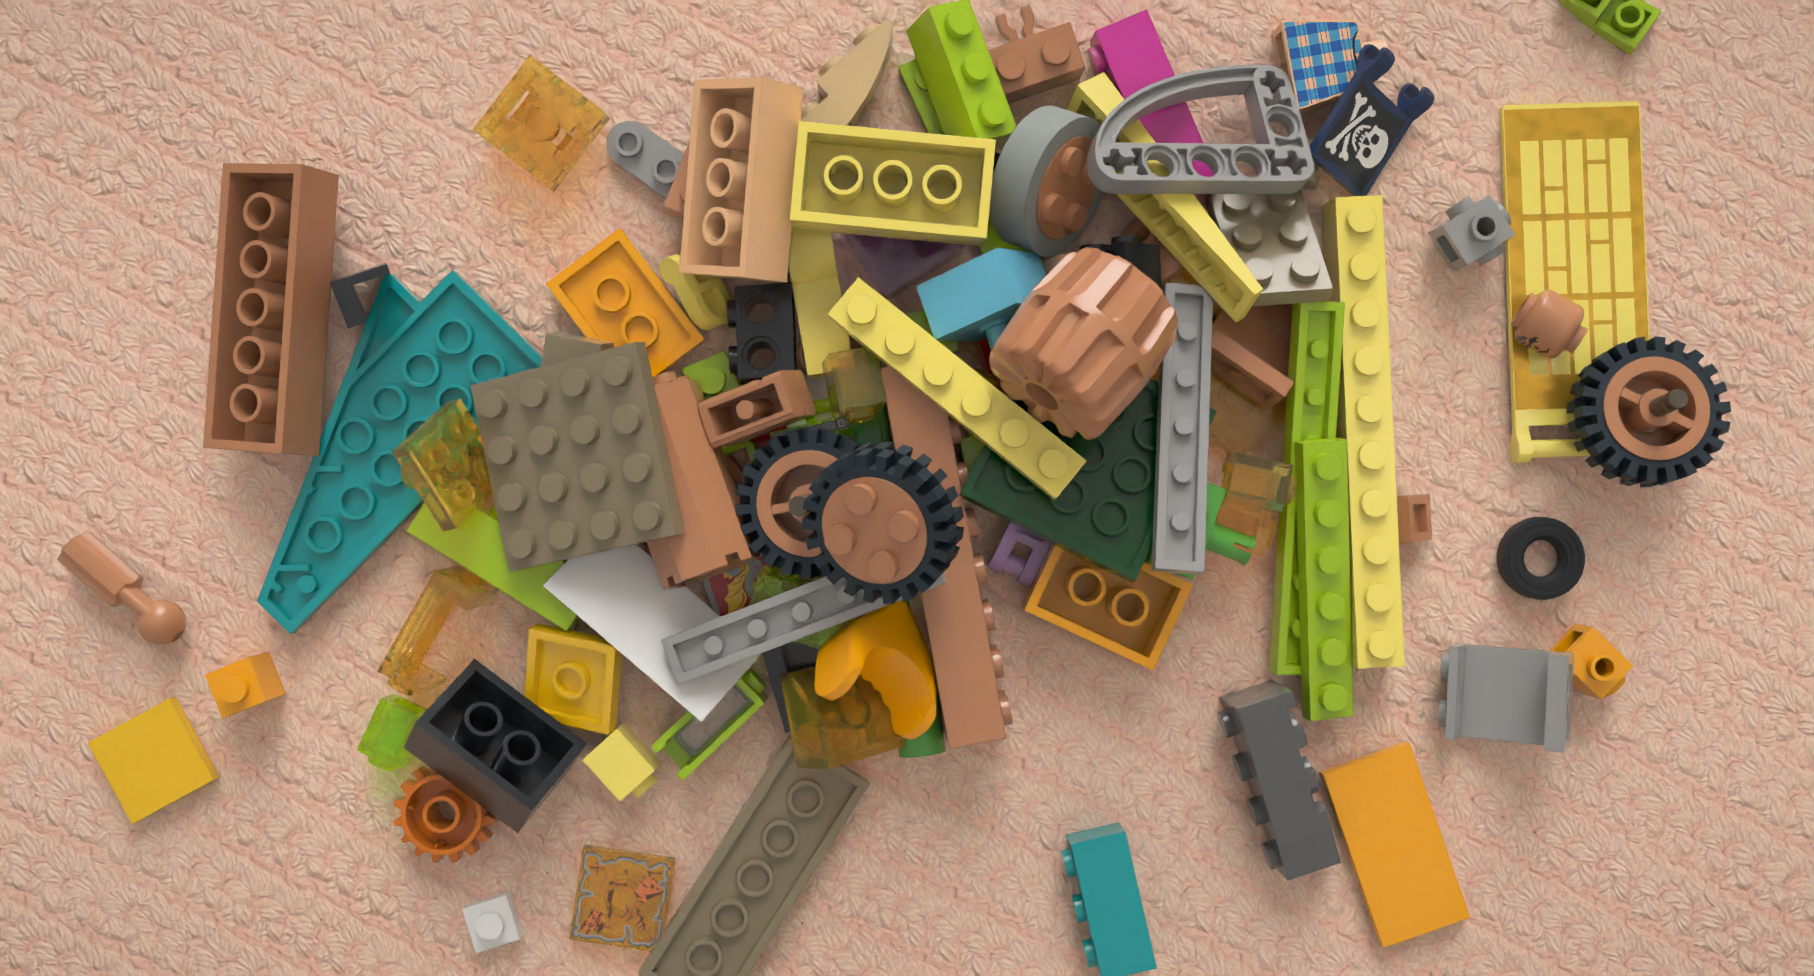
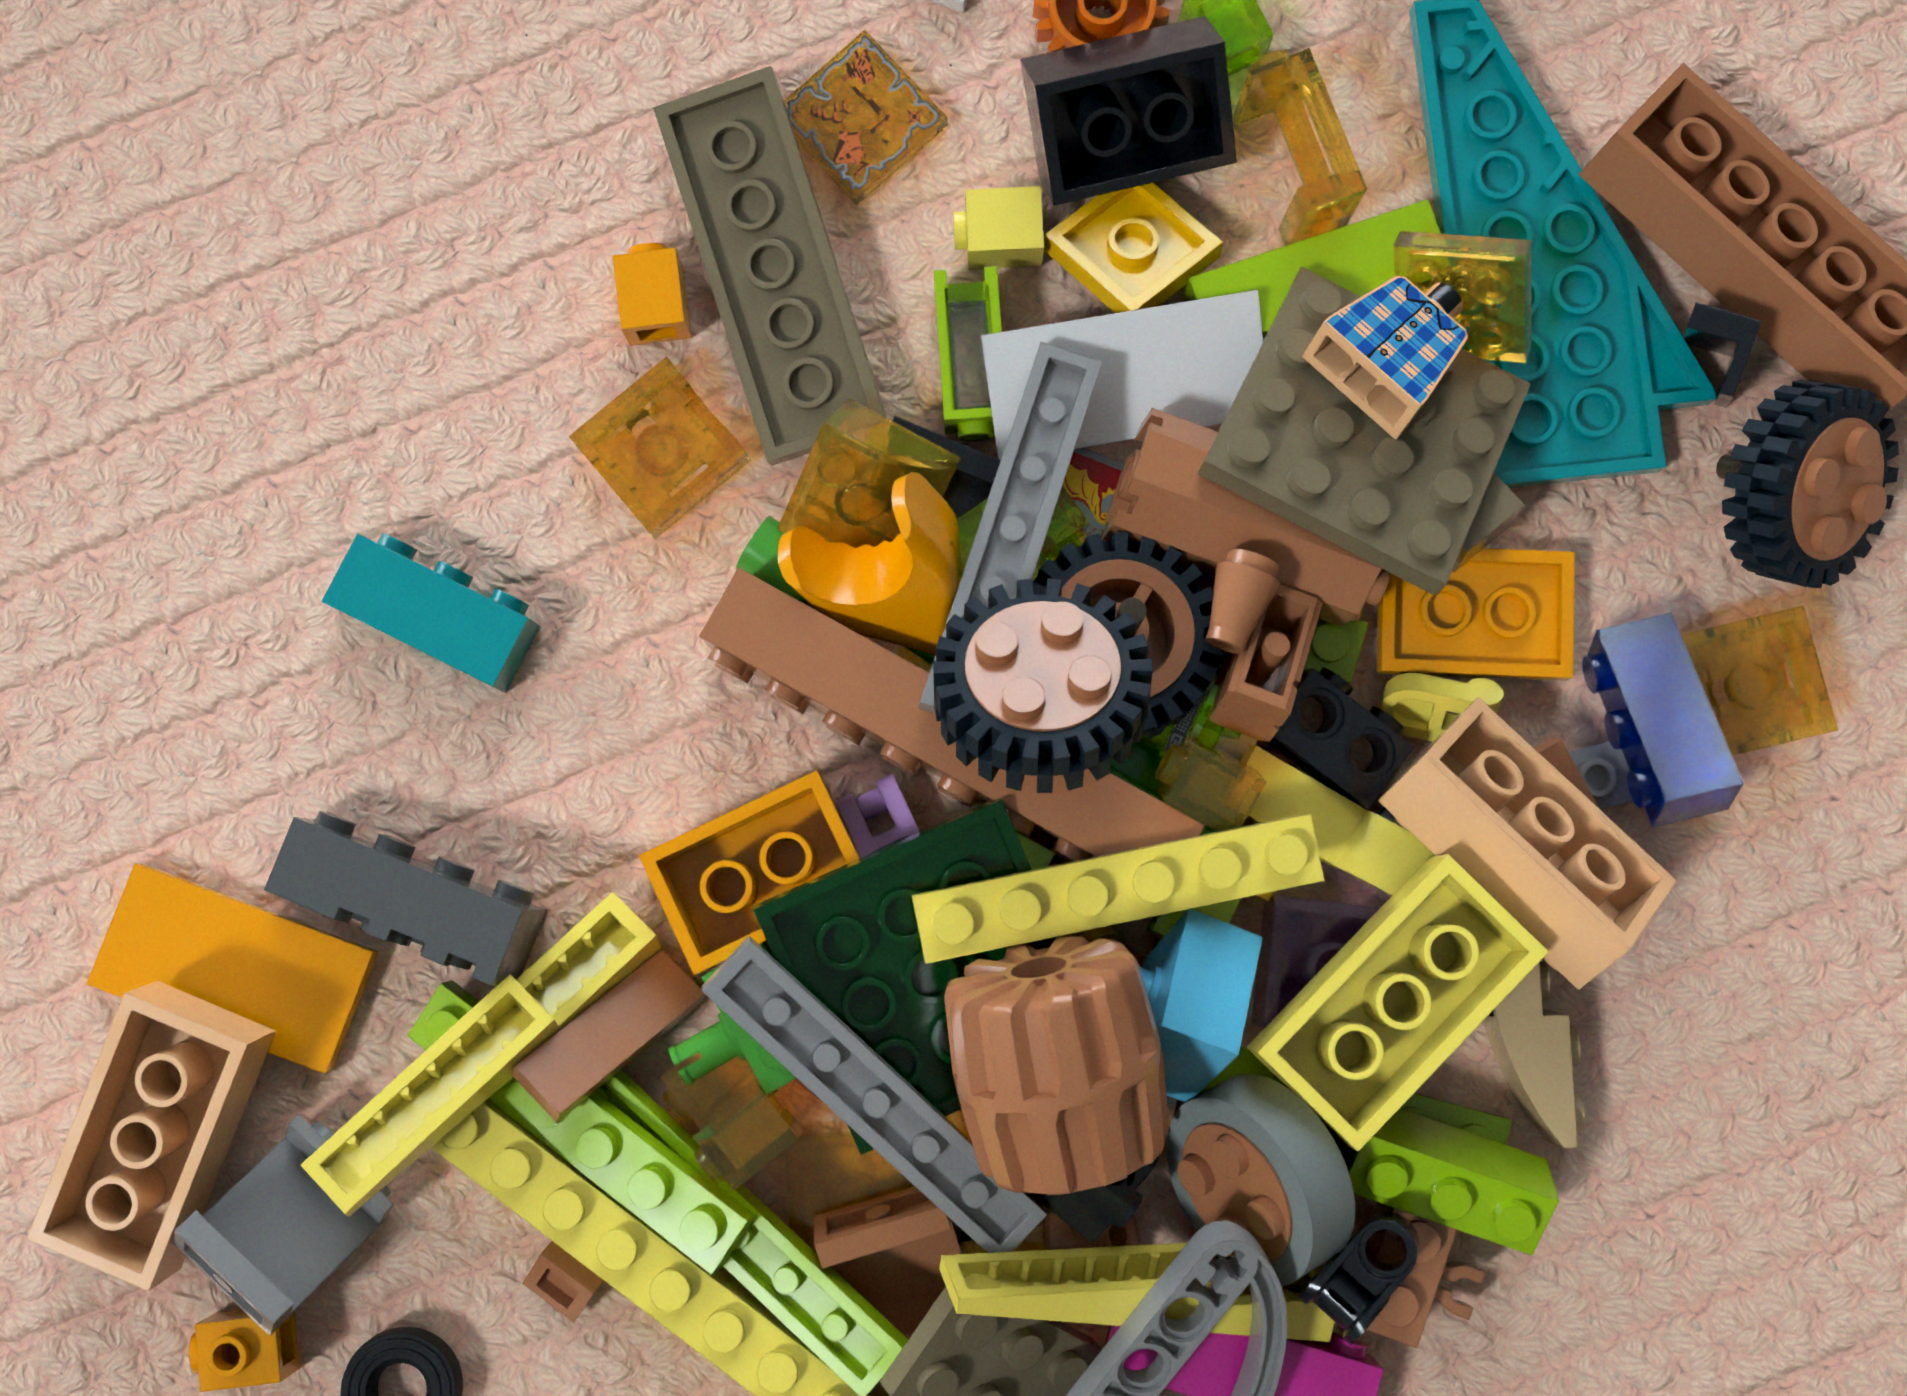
camera: 130 degrees right, 5 degrees down
(398, 180) = (1809, 482): none -> black wheel
(521, 481) = (1390, 349): none -> torso
(606, 159) = (1661, 721): none -> clear blue brick
(735, 451) = (1240, 597): none -> nougat cone
(826, 931) = (651, 294): none -> light orange brick
(920, 847) = (663, 454): none -> clear yellow brick
(1063, 82) = (1357, 1285): none -> black piece
(1263, 604) = (608, 1035): none -> nougat tile
(1330, 665) = (479, 1054): none -> light yellow slope
(1520, 811) = (150, 1133): none -> light nougat brick

